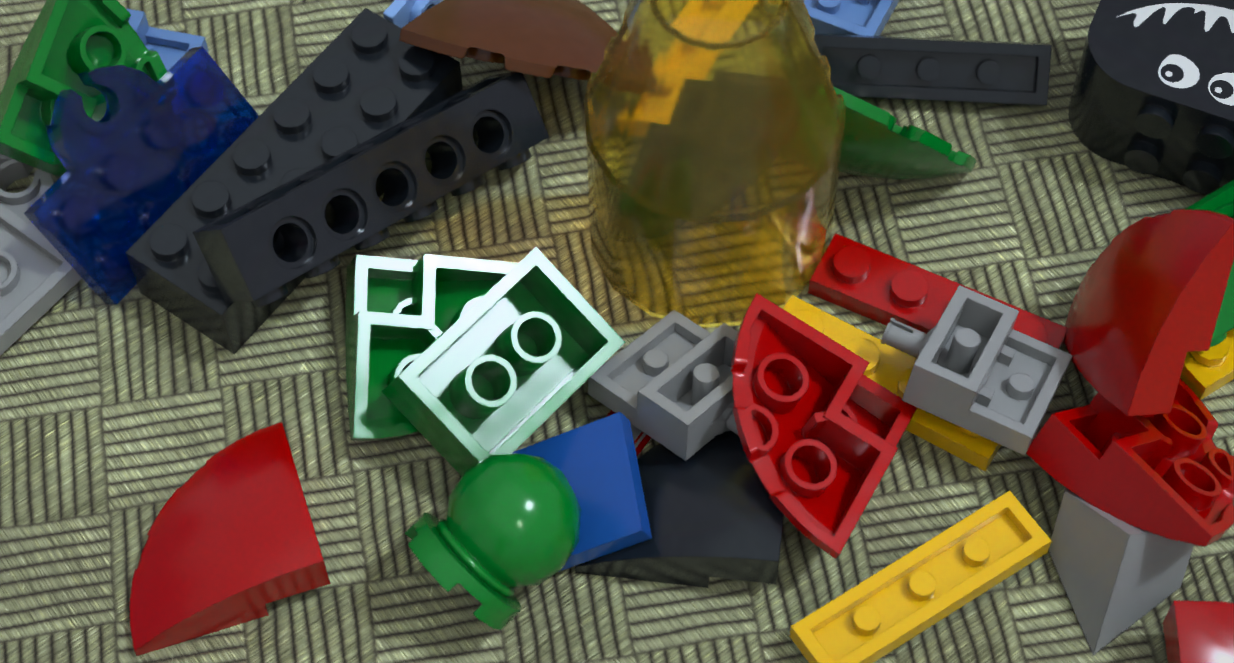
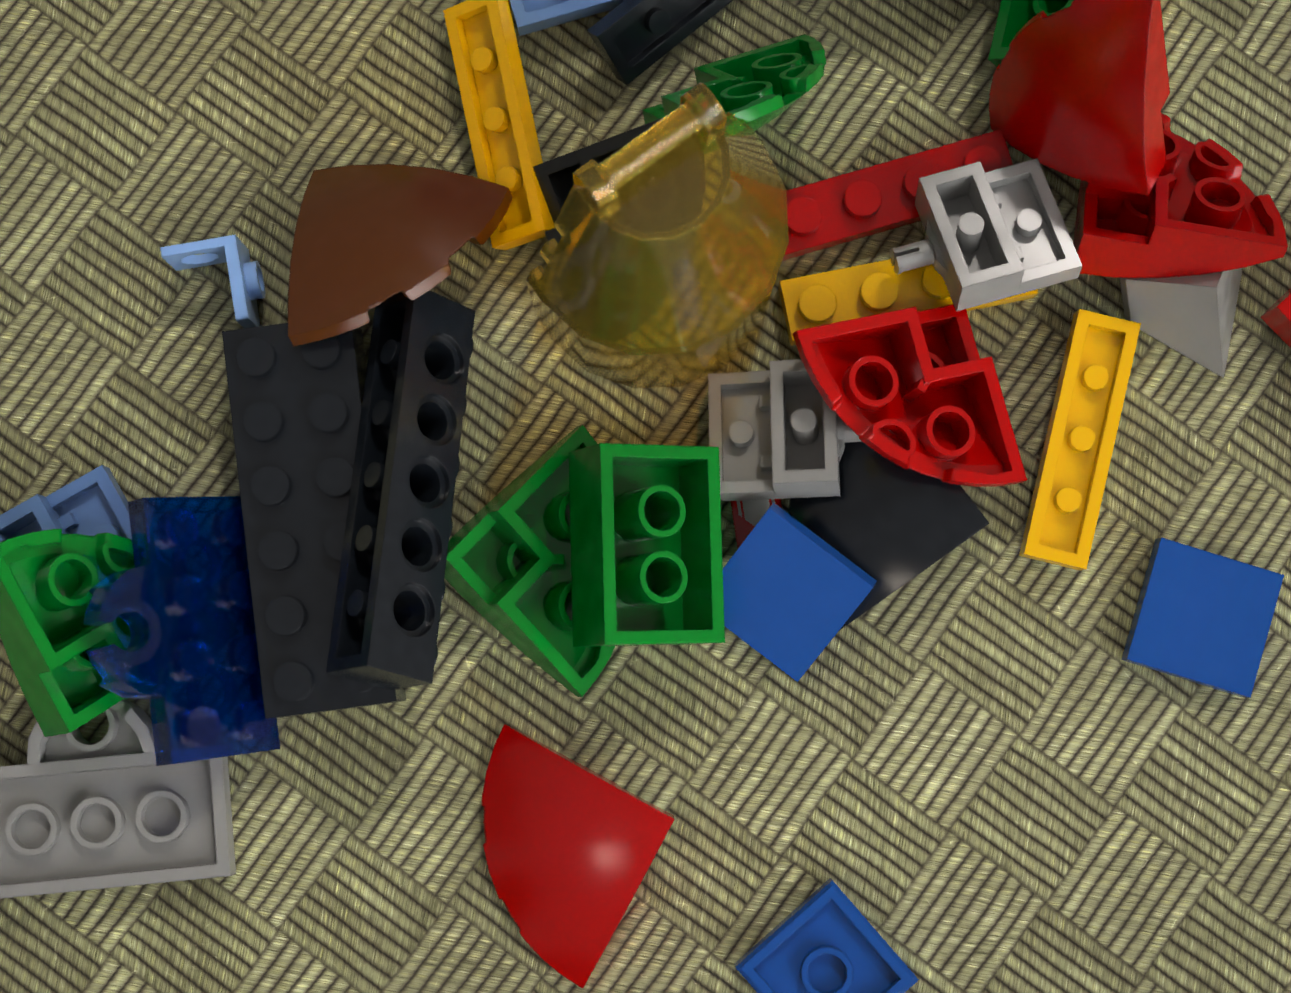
camera: 45 degrees left, 25 degrees up
(504, 530) = (779, 685): green tile -> none

